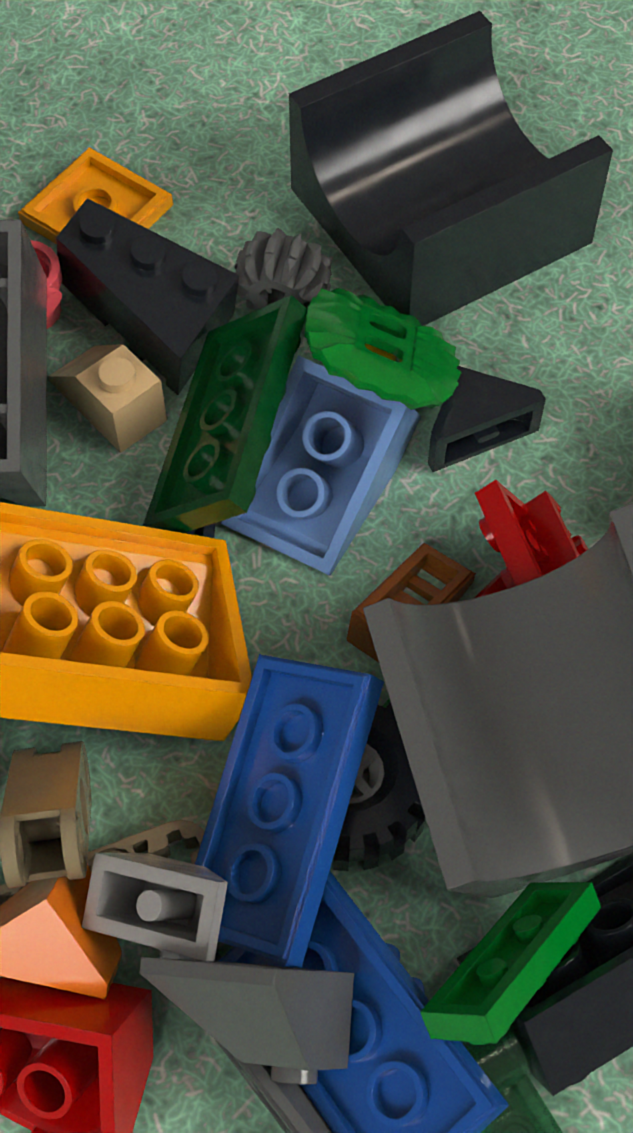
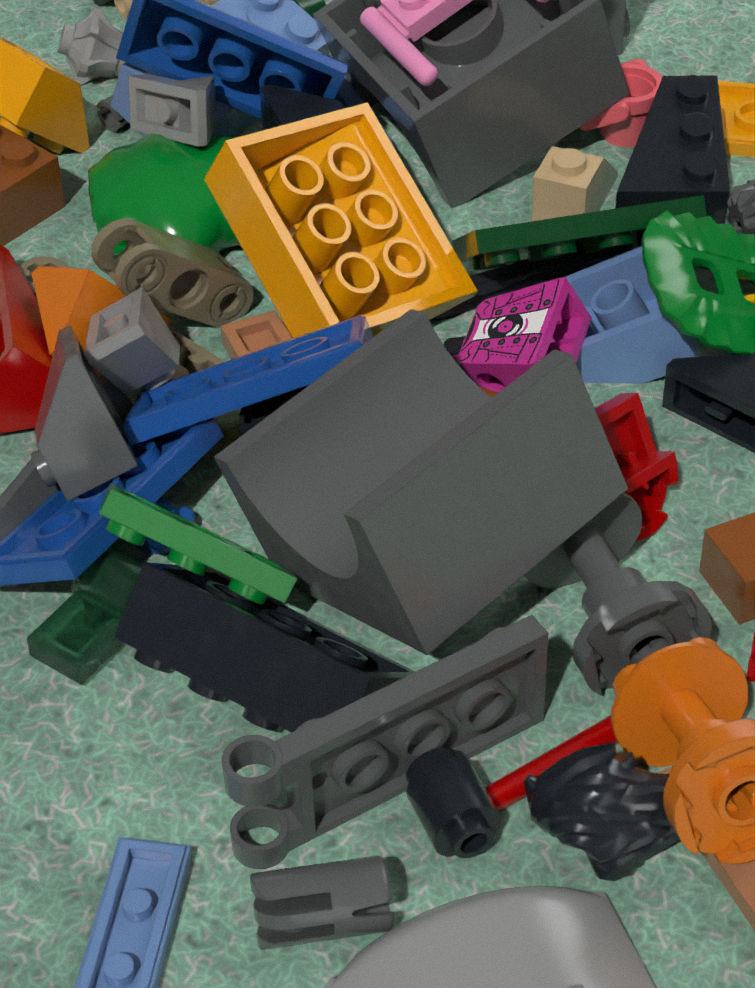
camera: 65 degrees right, 15 degrees down
(163, 773) = (253, 334): none -> nougat plate
(333, 543) = (520, 330): none -> dark pink torso

